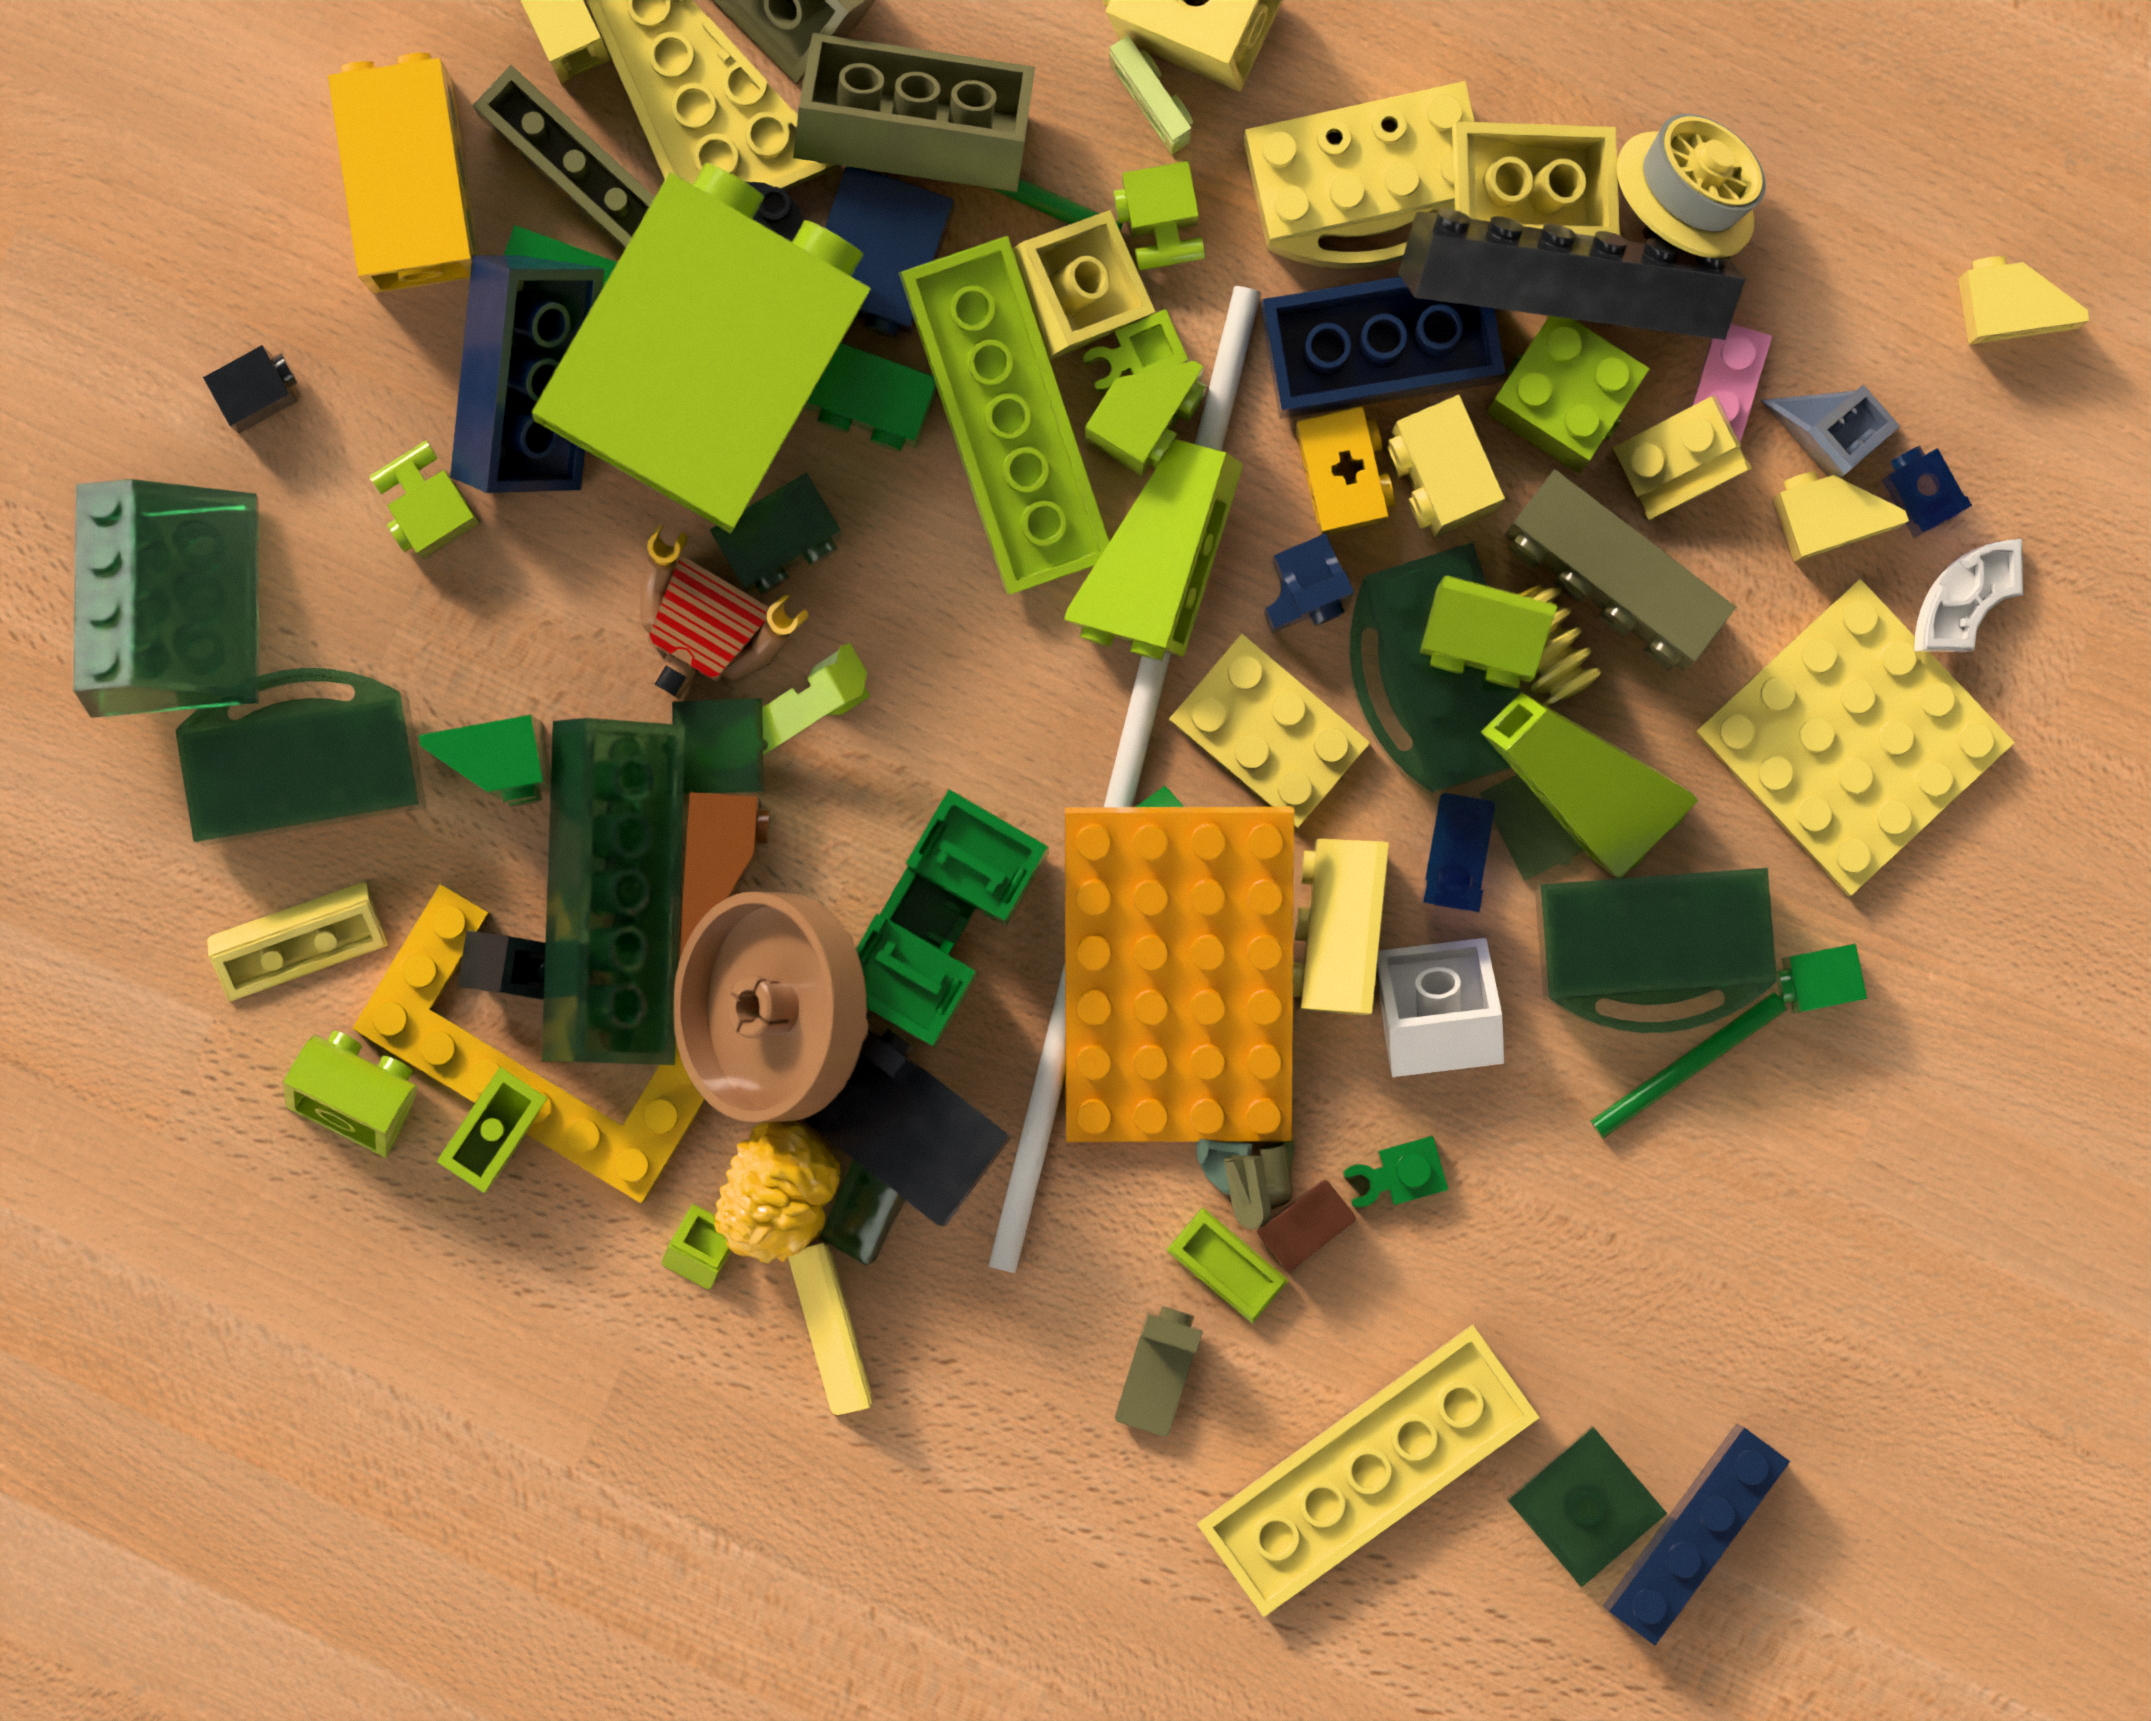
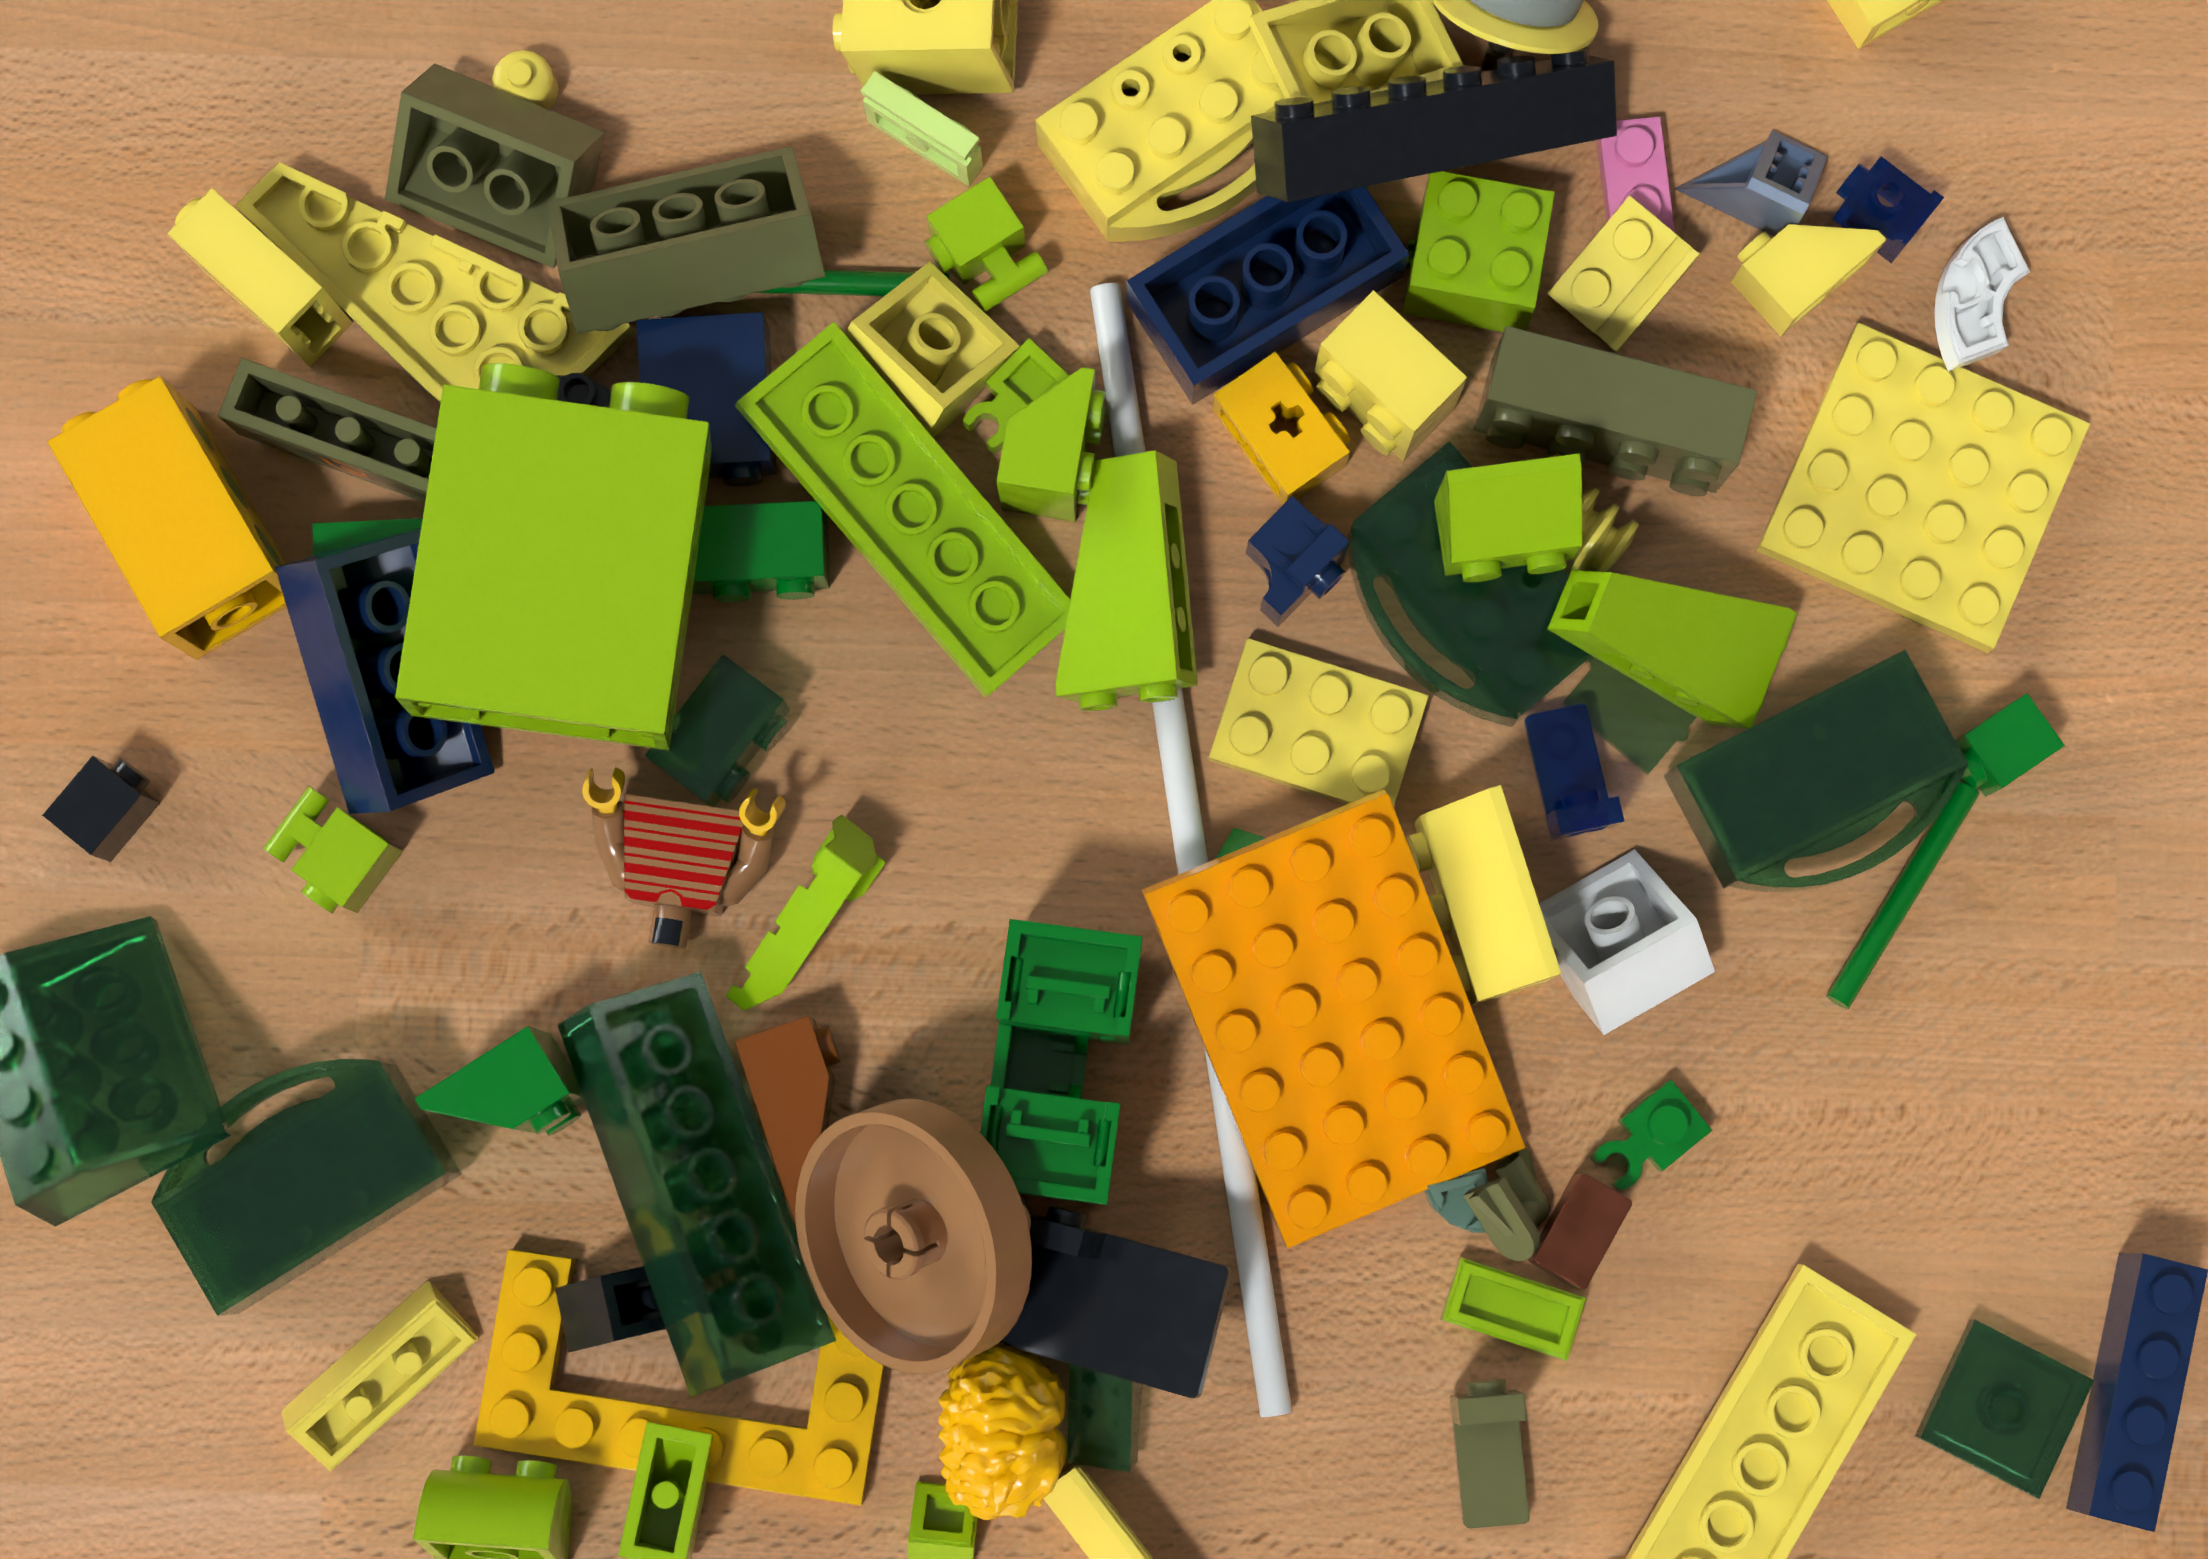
camera: 20 degrees left, 5 degrees down
(722, 745) = (750, 977): clear green piece -> none

